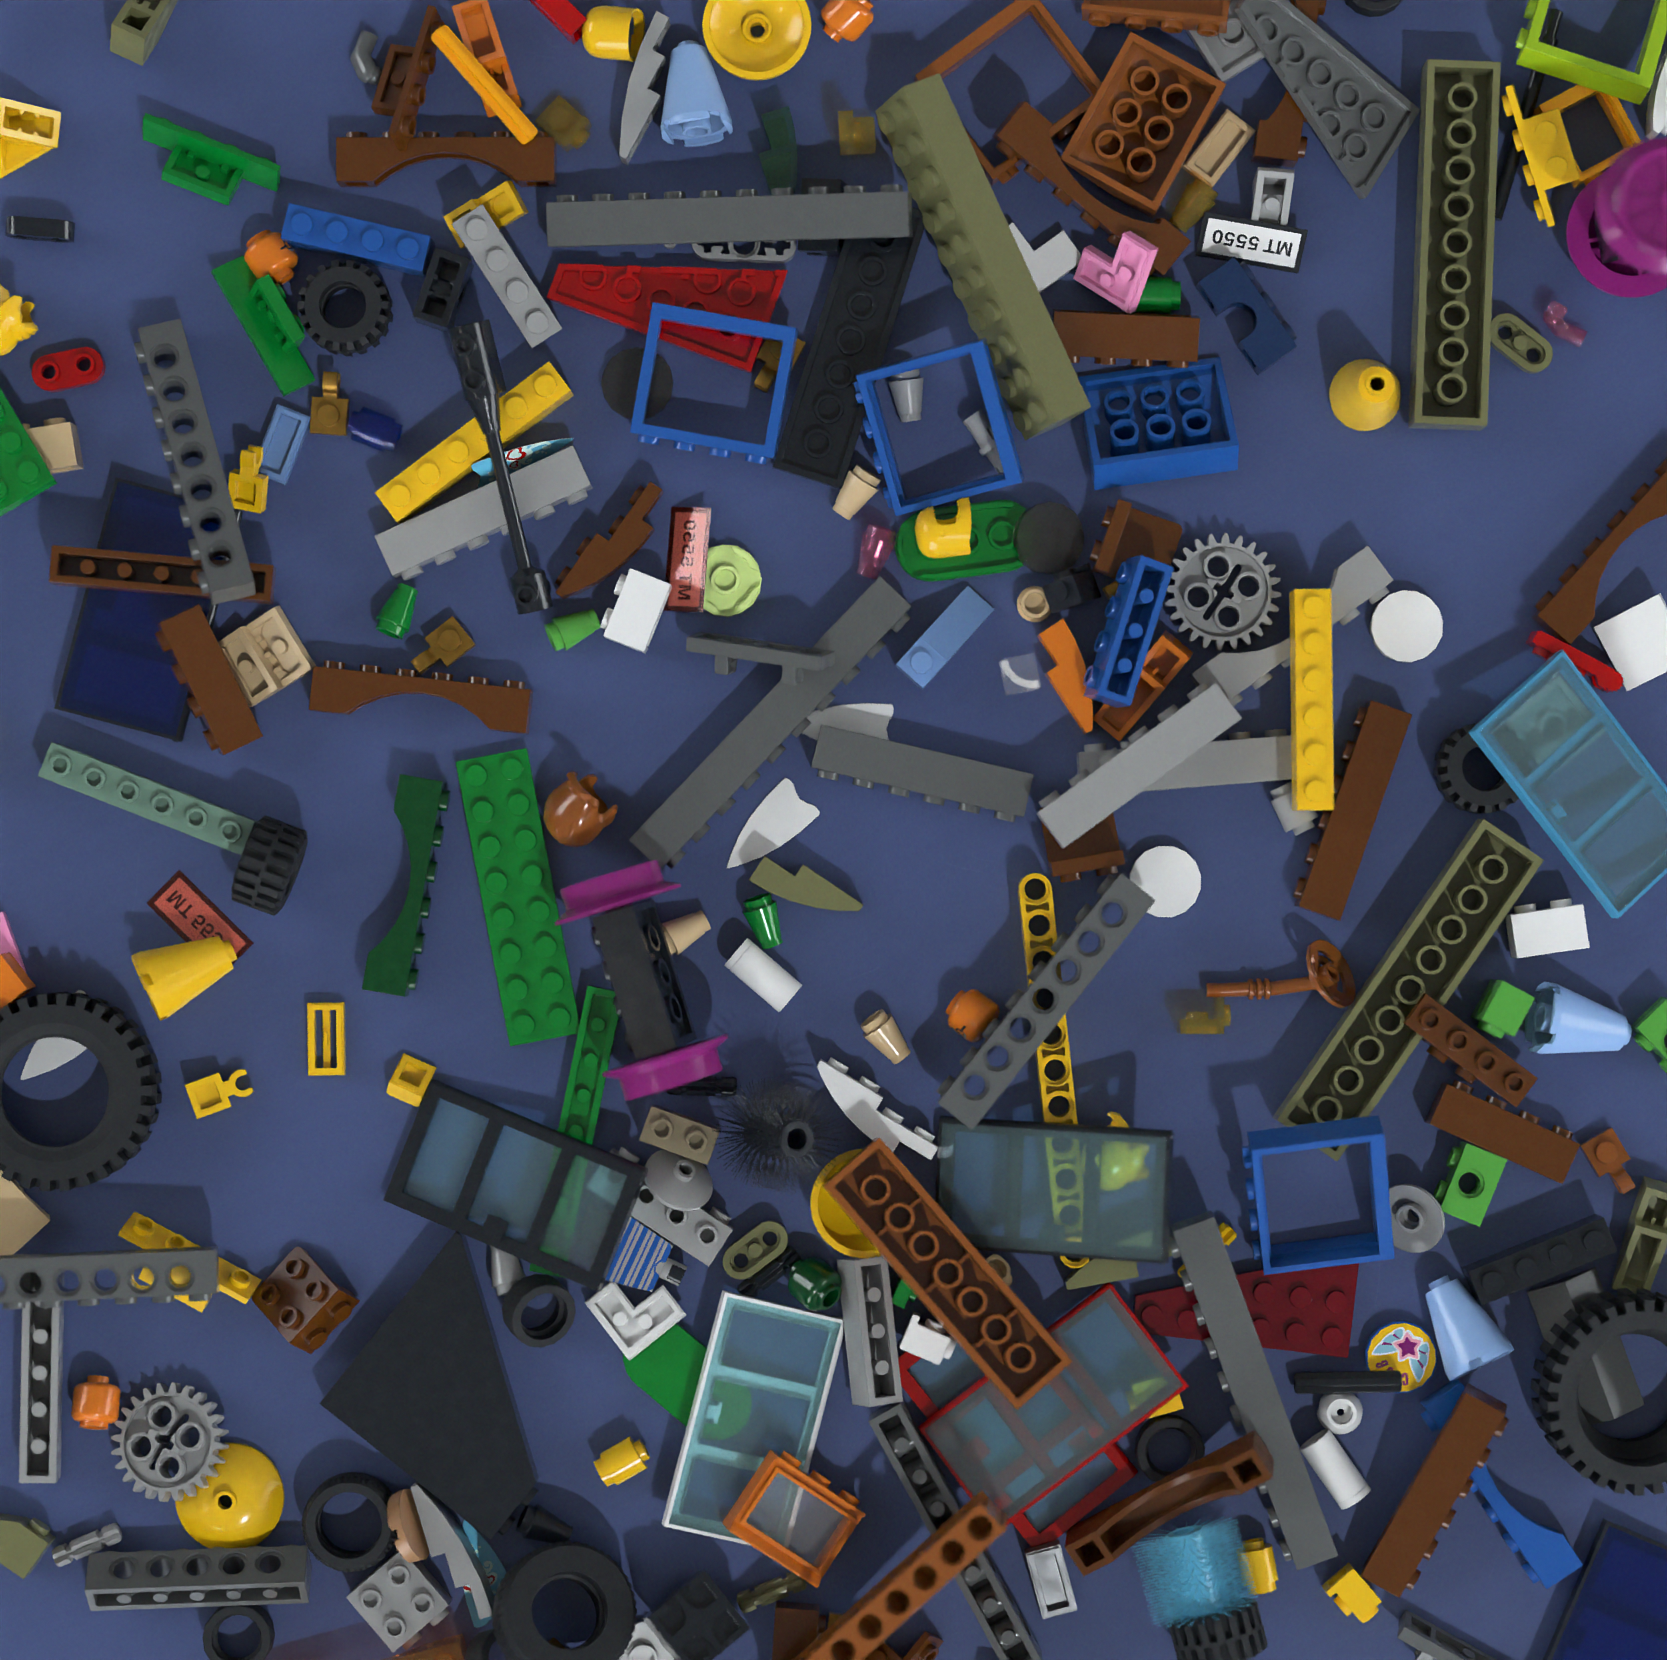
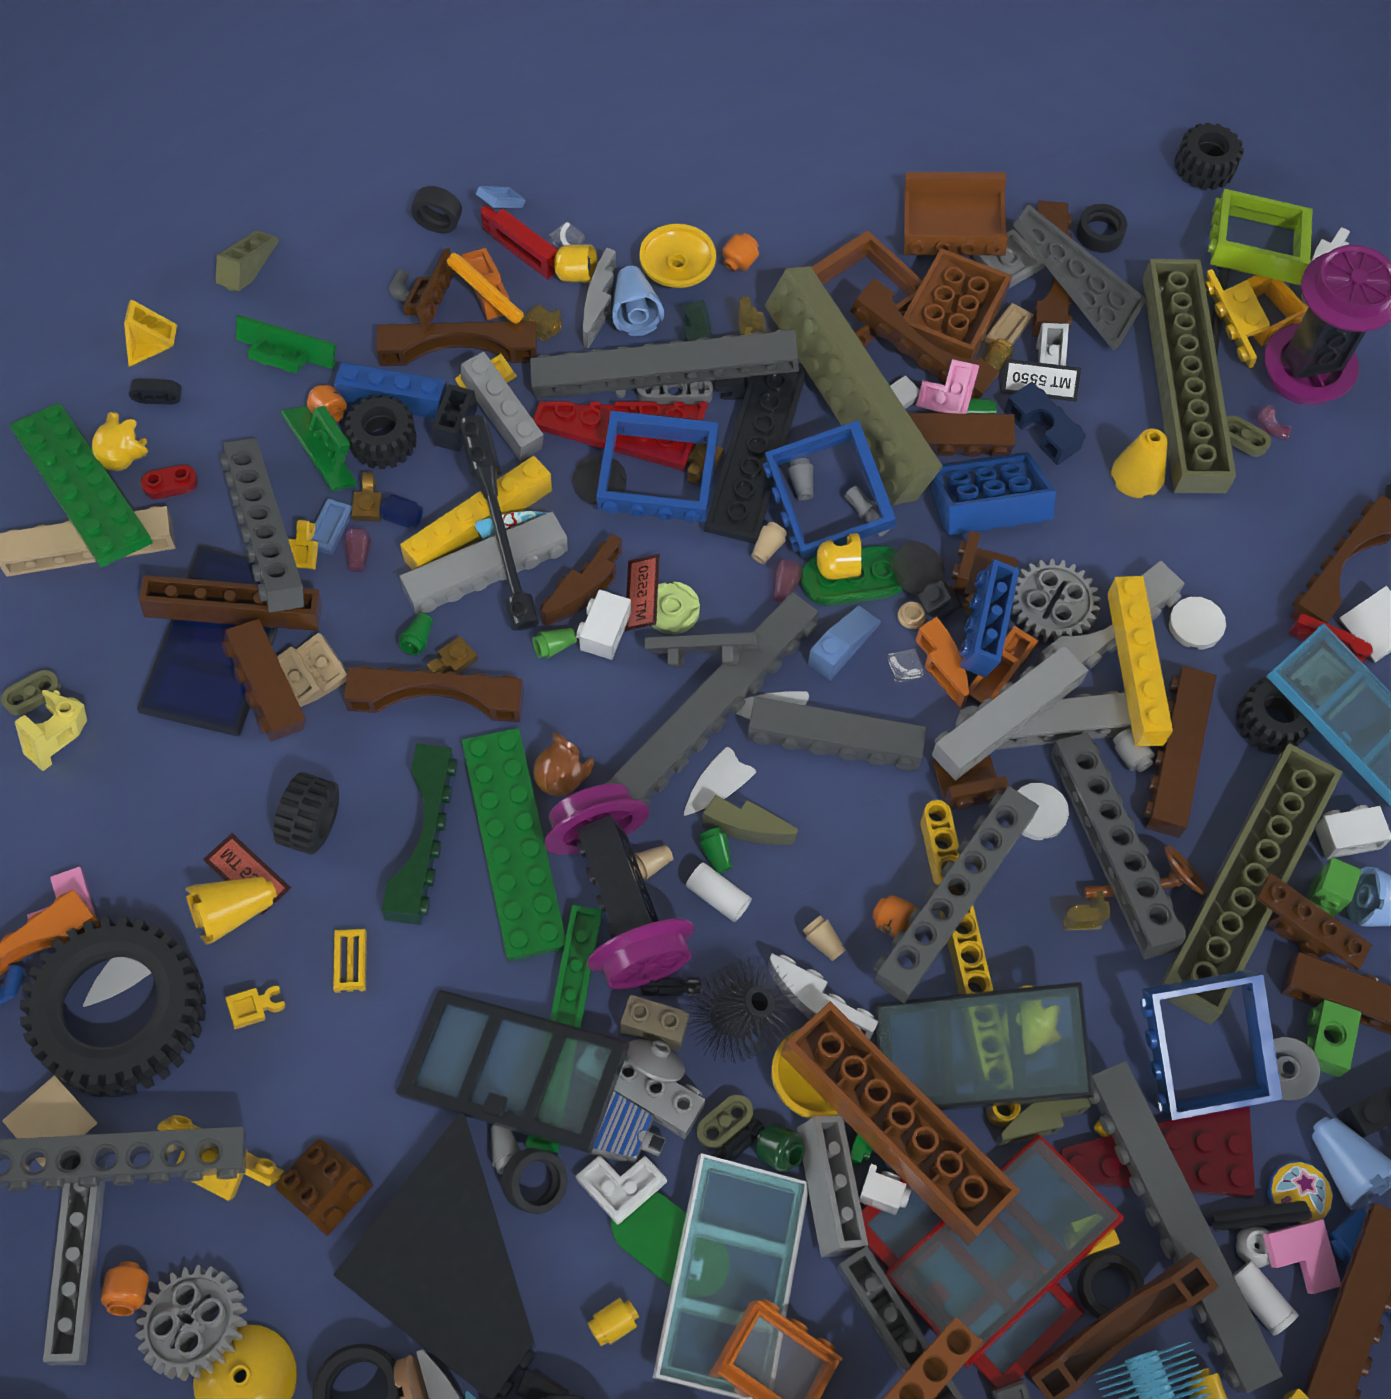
camera: 10 degrees left, 25 degrees down
(146, 798) = (203, 770): sand green brick -> none
(318, 485) = (357, 548): none -> clear pink cone
(410, 1080) = (420, 992): yellow slope -> none
(1270, 1063) = (1150, 937): none -> dark grey brick
(1396, 1418) = (1310, 1247): none -> bright pink tile

